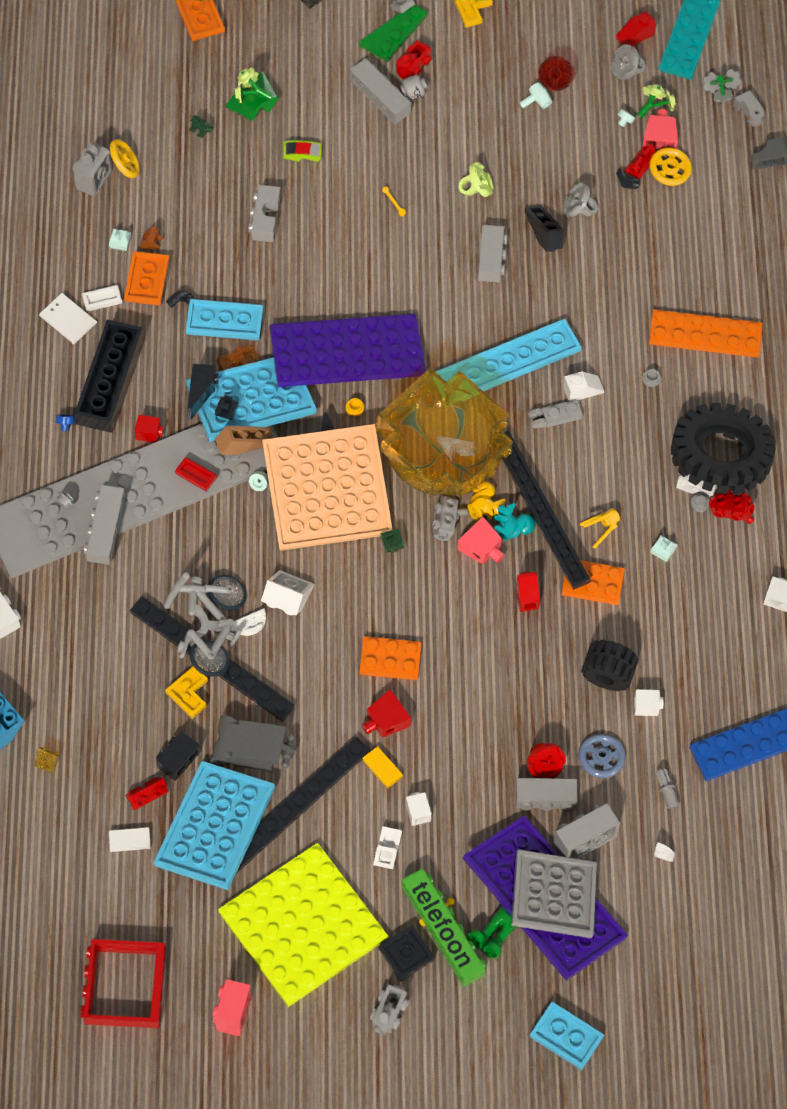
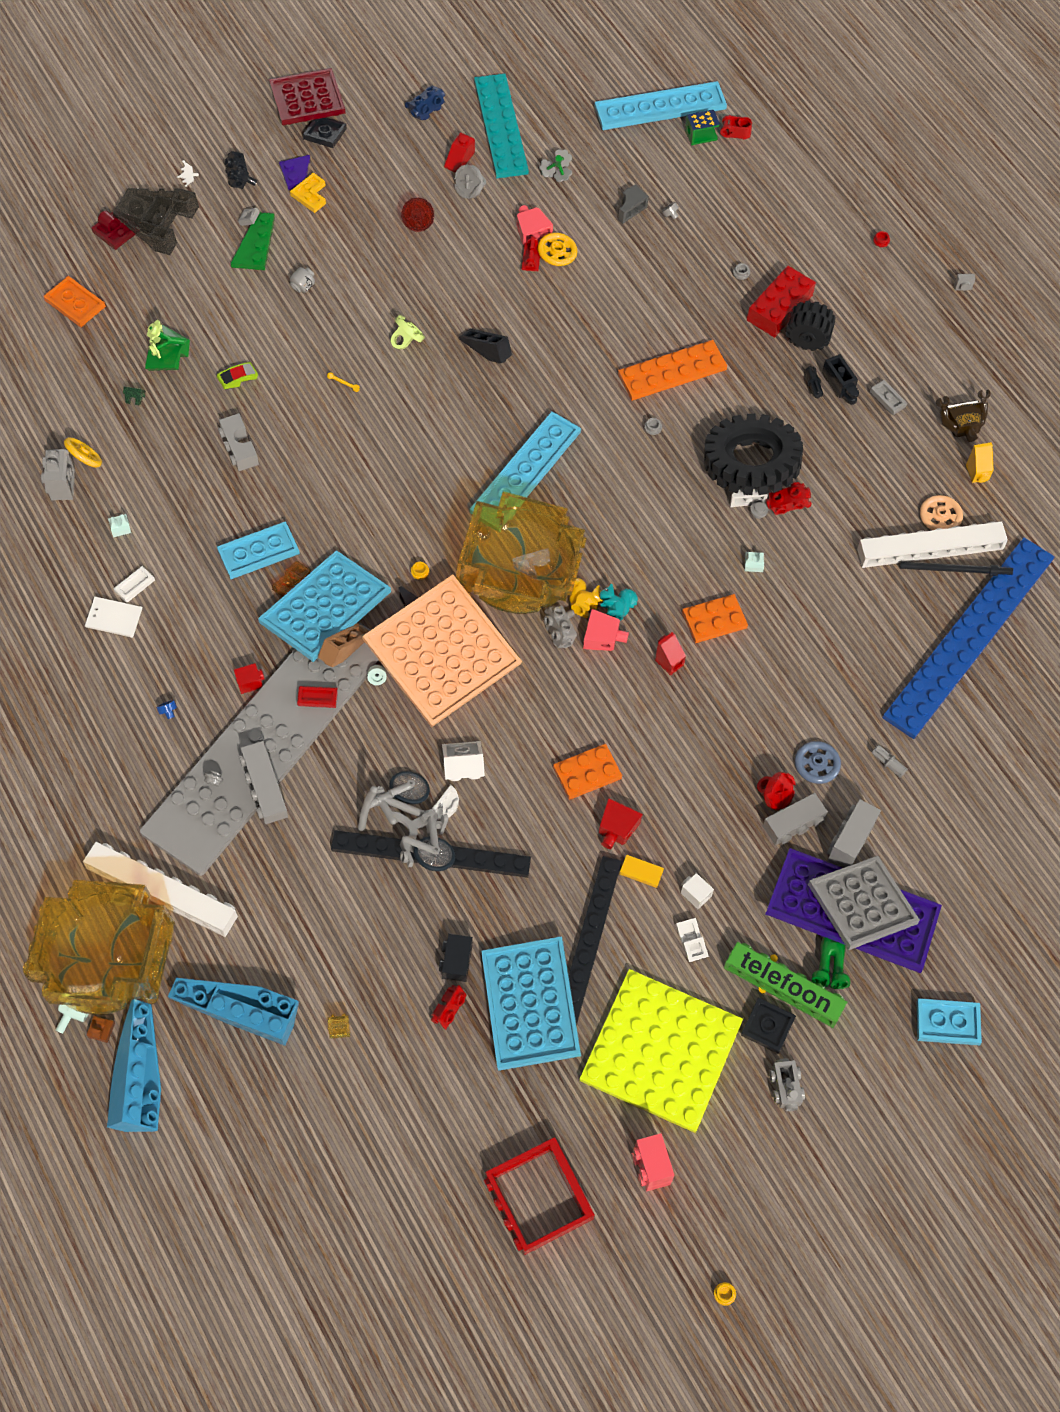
camera: 30 degrees left, 0 degrees up
(109, 376) = (185, 649): black brick -> none
(129, 839) = (459, 1058): white tile -> none
(146, 278) = (165, 547): orange plate -> none
(149, 238) = (146, 511): dark orange tile -> none
(183, 296) = (204, 549): black arm -> none
(184, 690) = (426, 898): yellow plate -> none
(201, 387) = (277, 615): black slope -> none
(226, 407) = (311, 624): black tile -> none
(251, 745) = (517, 912): dark grey piece -> none
(347, 350) = (383, 525): dark purple plate -> none
(380, 91) = (275, 295): light grey brick -> none
(392, 541) = (526, 668): clear green tile -> none
(413, 60) = (288, 257): red brick -> none
(492, 253) = (456, 386): light grey brick -> none
(538, 94) = (412, 239): light aqua piece -> none
(545, 517) = (648, 586): black plate -> none
(556, 414) = (594, 494): light grey hinge -> none
(578, 201) = (502, 309): light grey tile -> none
(581, 386) = (600, 461): white slope -> none
(607, 518) = (693, 560): yellow plant -> none
(609, 665) = (780, 680): black wheel -> none
(625, 117) = (495, 225): light aqua tile -> none
(627, 182) = (529, 278): black arm -> none
(647, 702) = (827, 697): white brick -> none
(655, 91) = (506, 197): plant -> none
(664, 852) = (922, 817): white tile -> none
(750, 107) = (591, 174): light grey leg -> none

